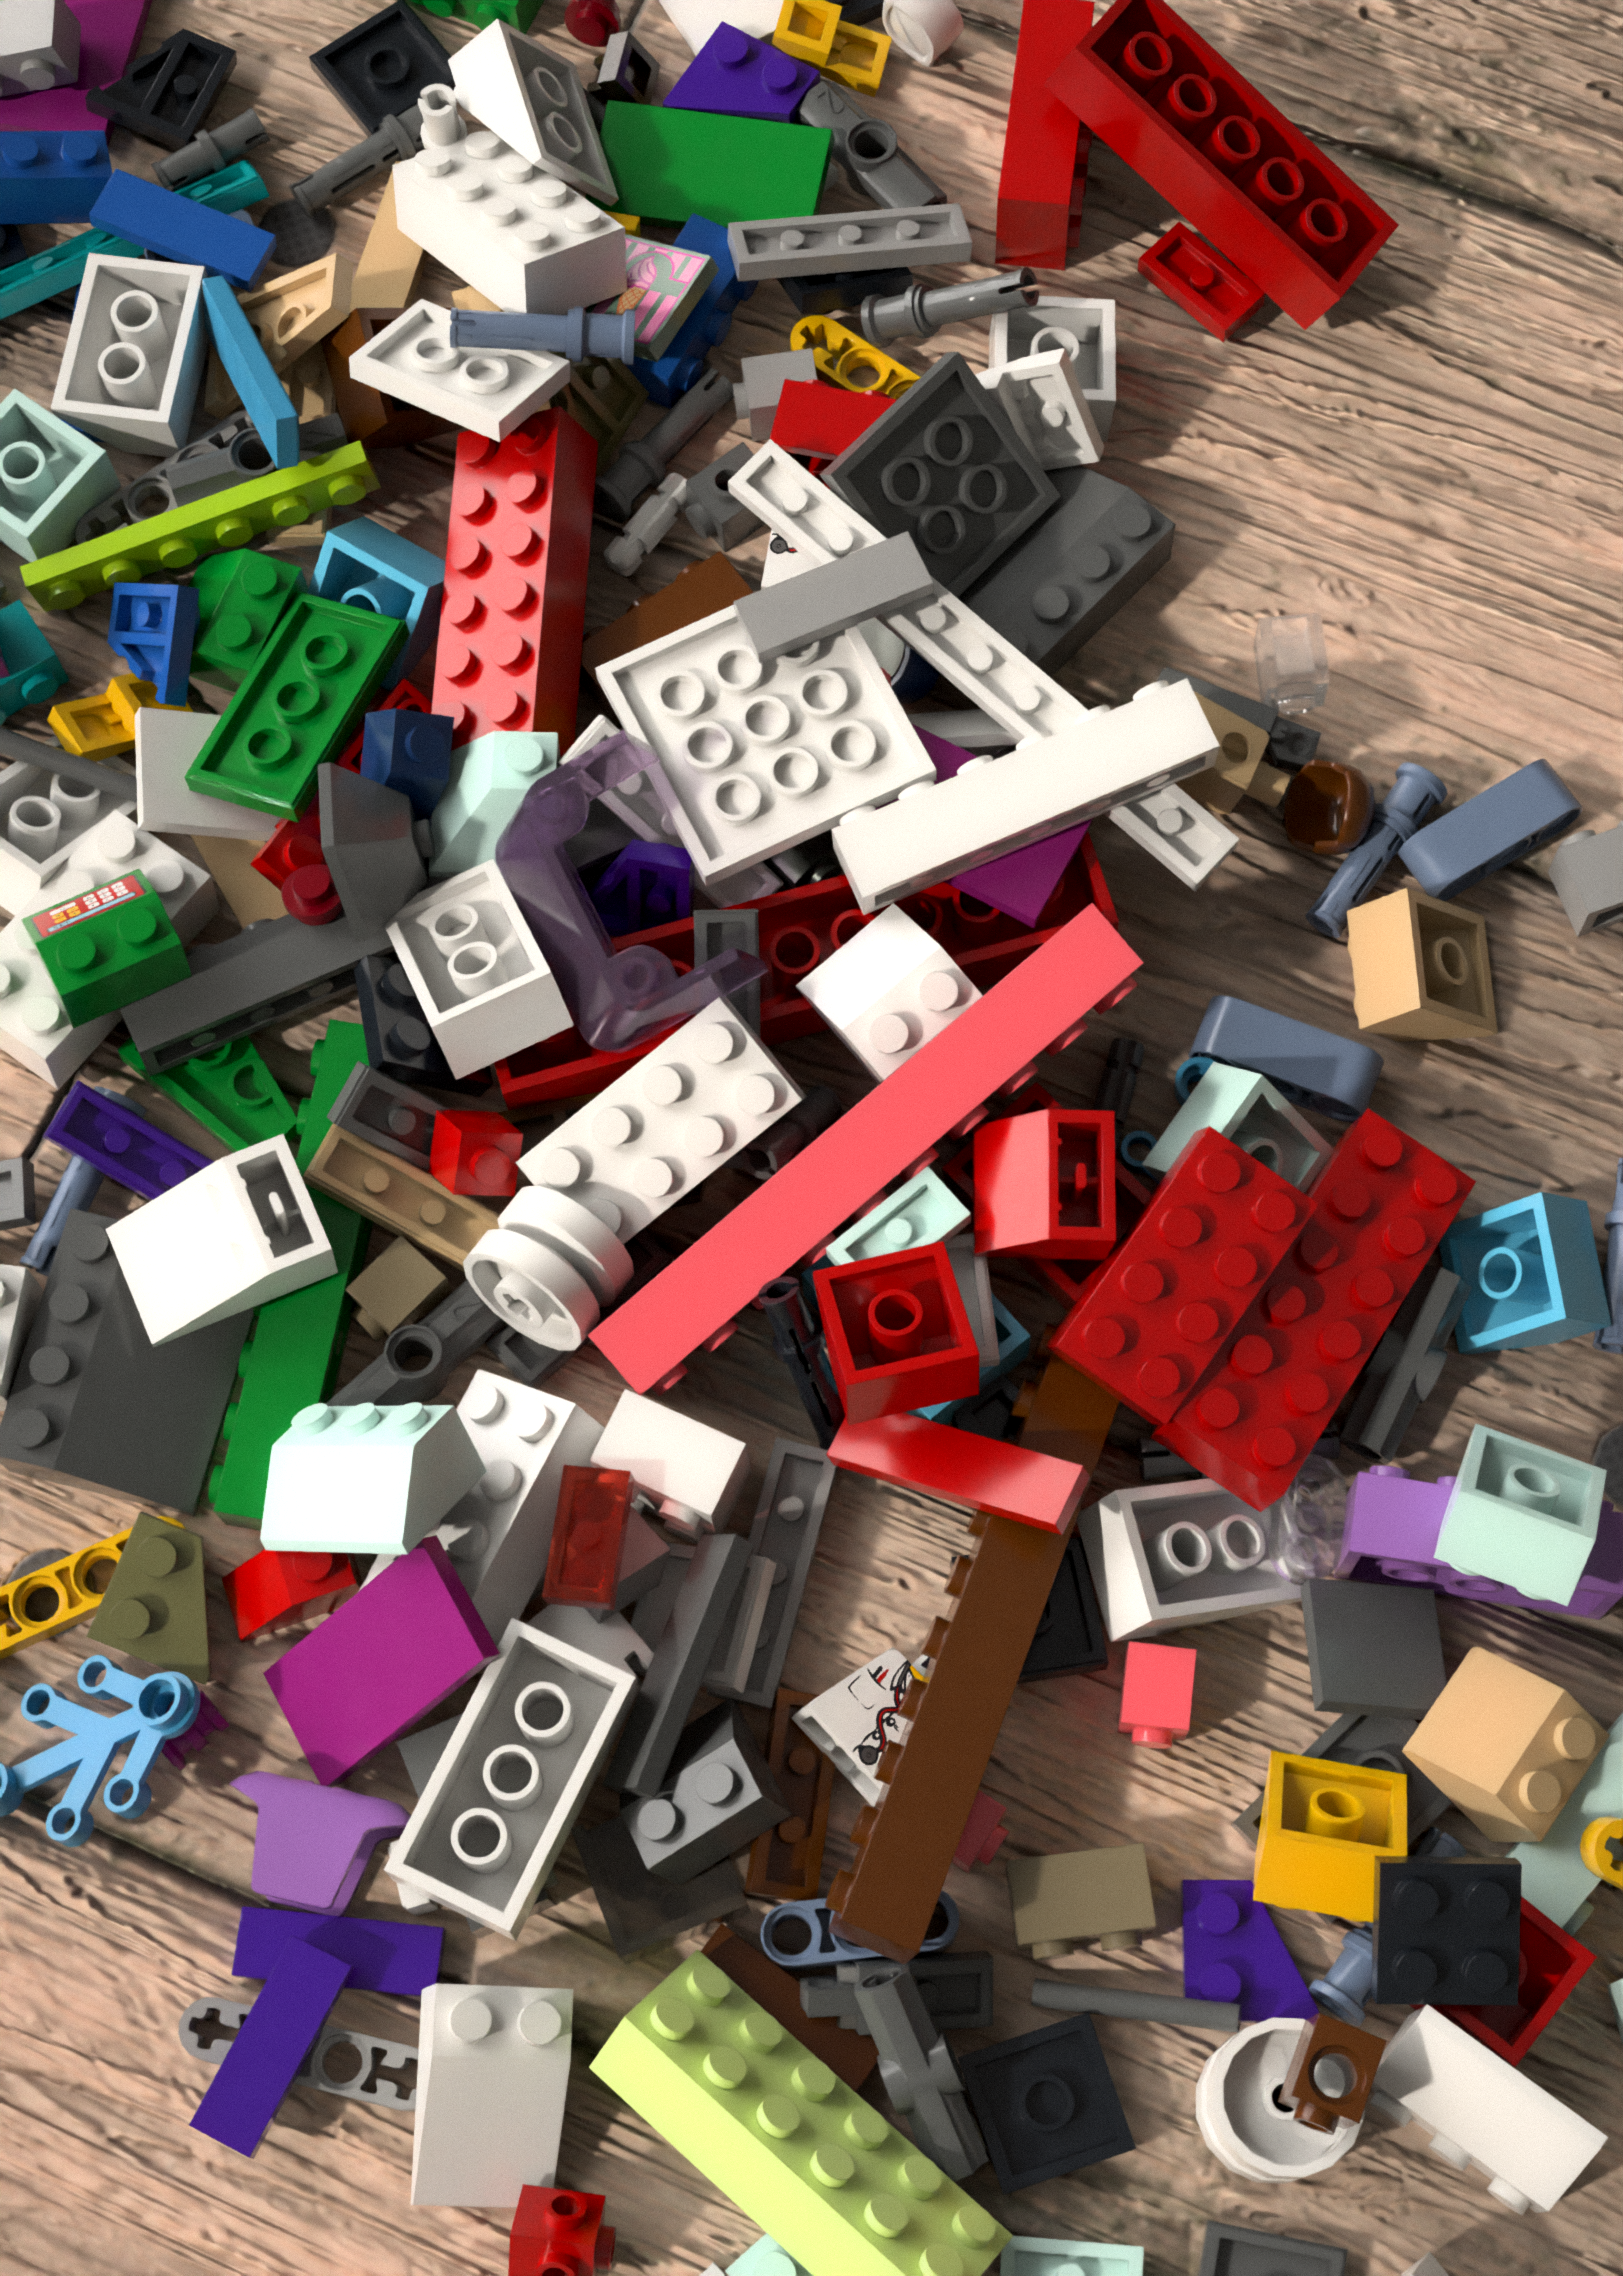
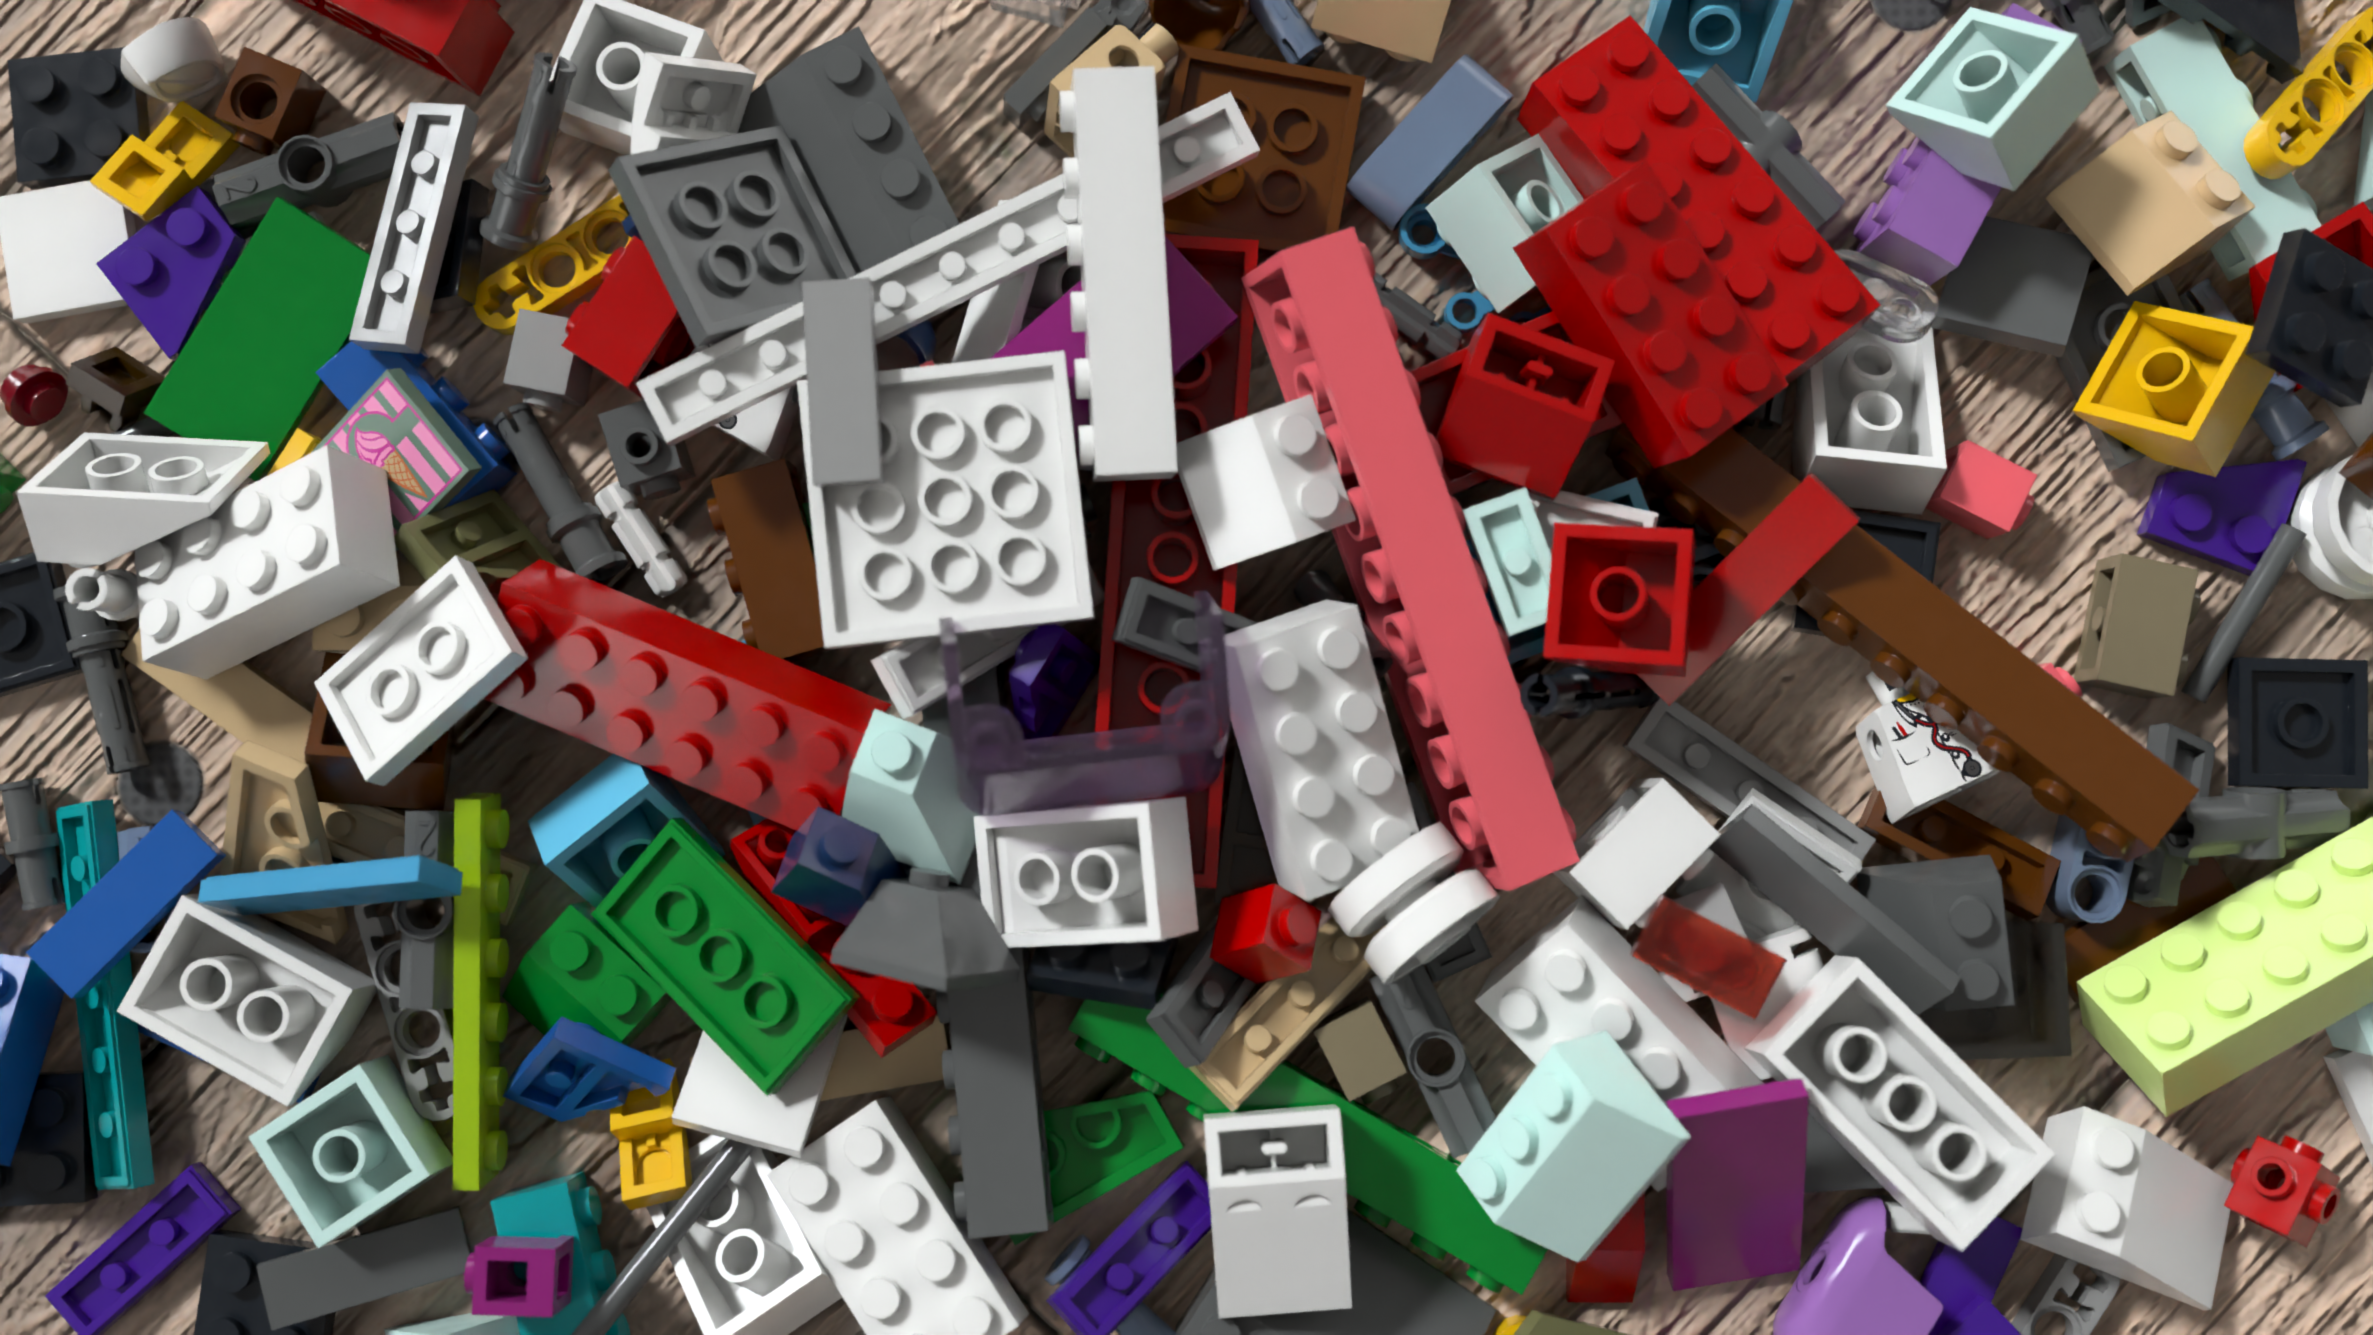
camera: 70 degrees left, 15 degrees up
(107, 947) = (925, 1234): green slope -> none
(311, 895) = (943, 1013): dark red plate -> none
(576, 333) = (428, 539): sand blue pin -> none
(920, 82) = (252, 85): none -> reddish brown brick
(1232, 936) = (1305, 139): none -> reddish brown plate

